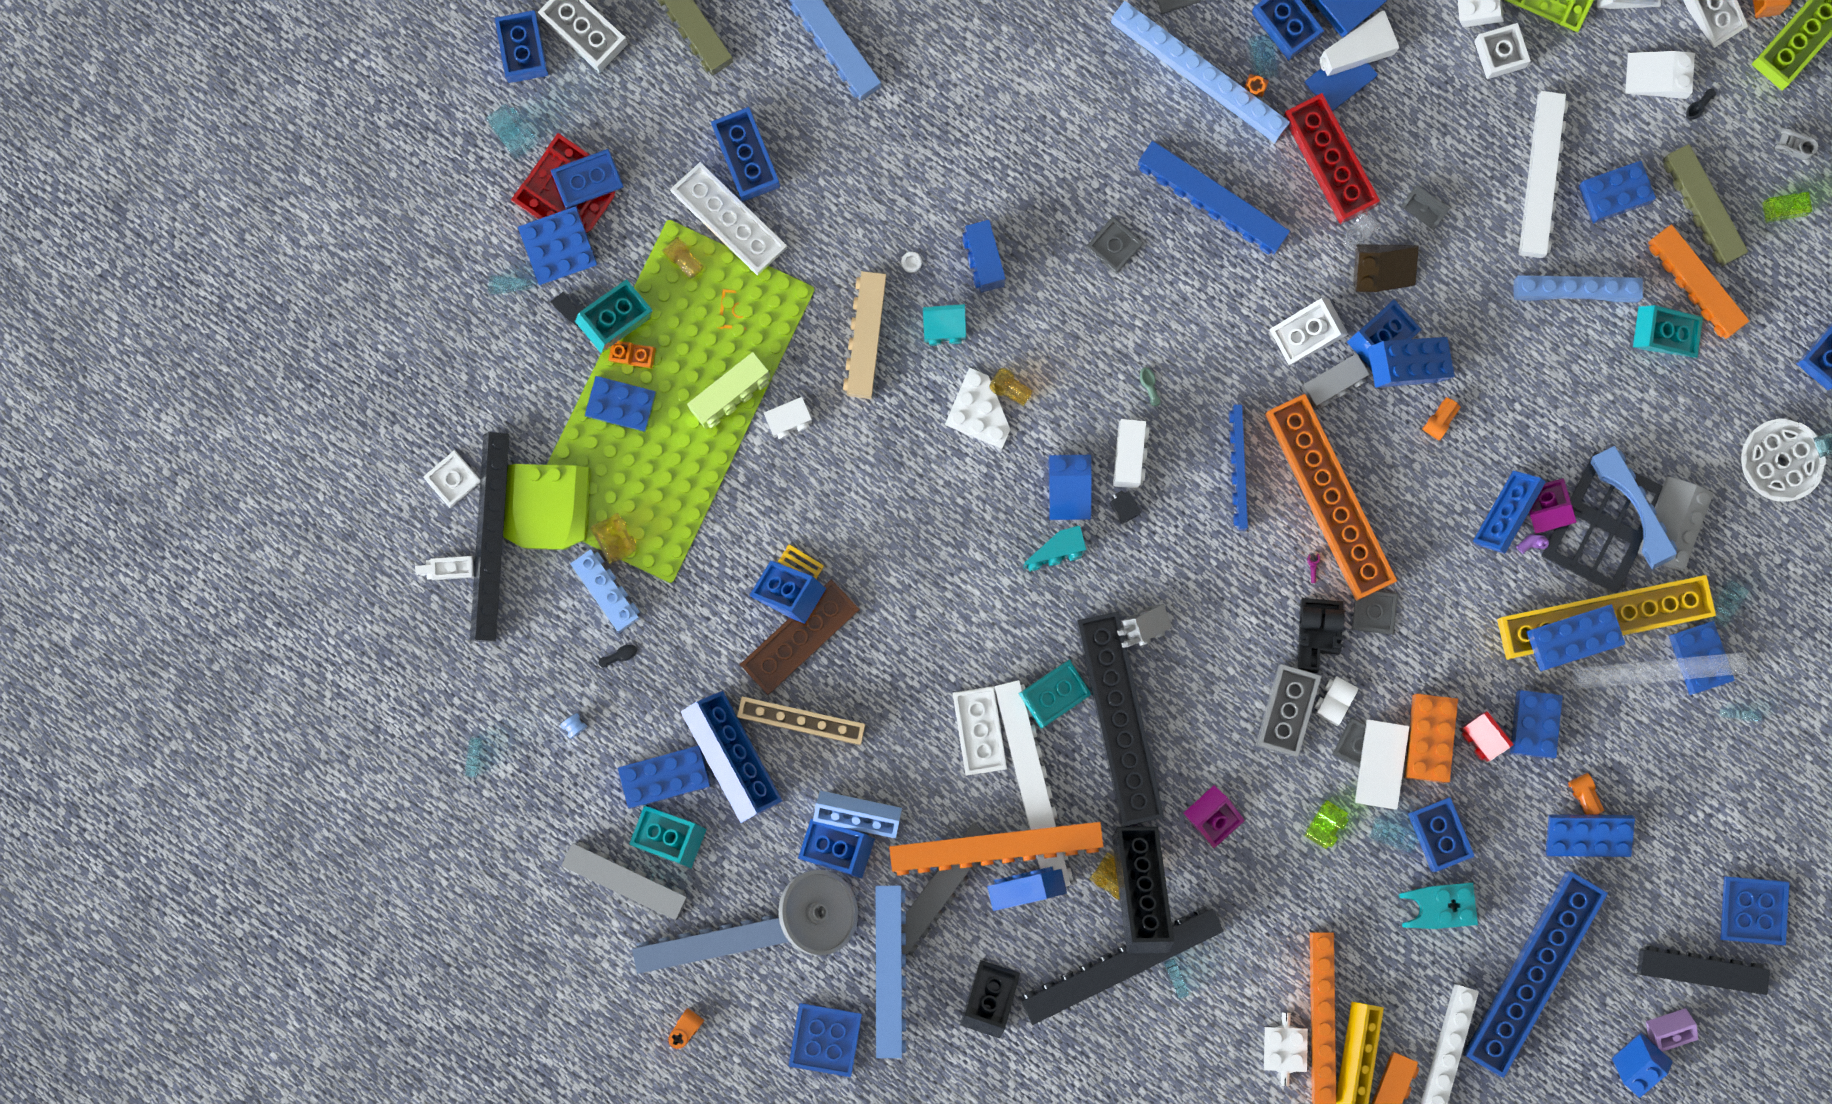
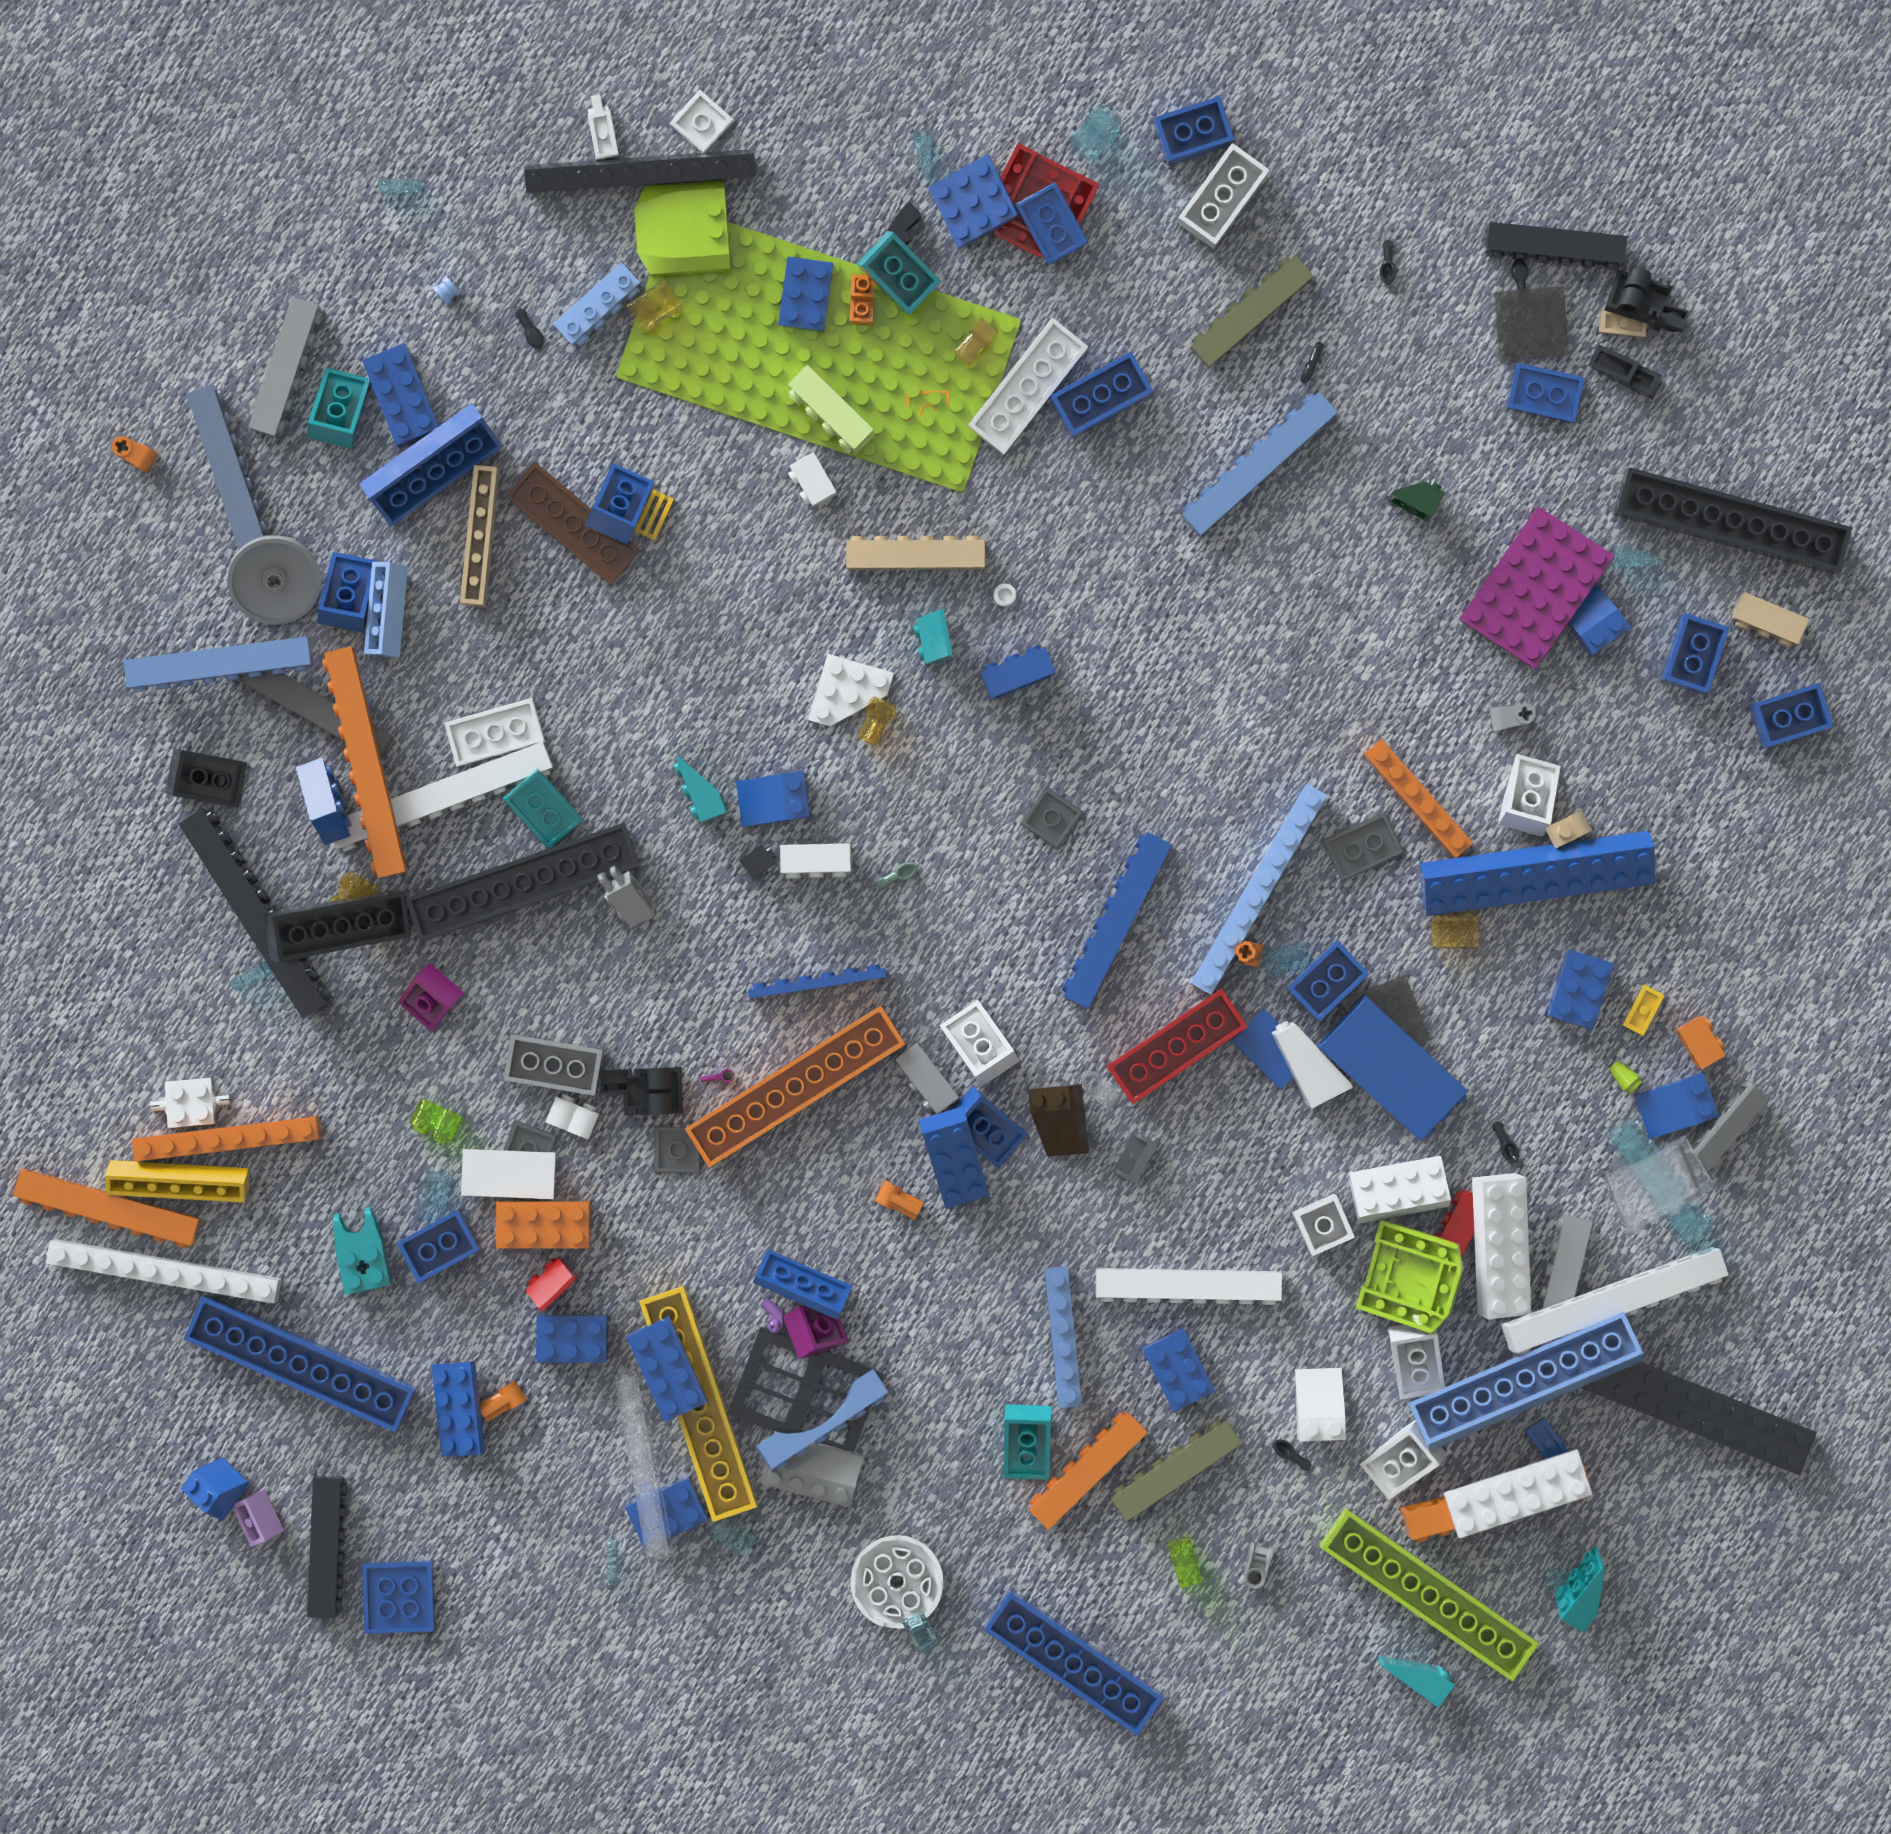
camera: 85 degrees right, 5 degrees up
(825, 1040) = (141, 605): blue plate -> none

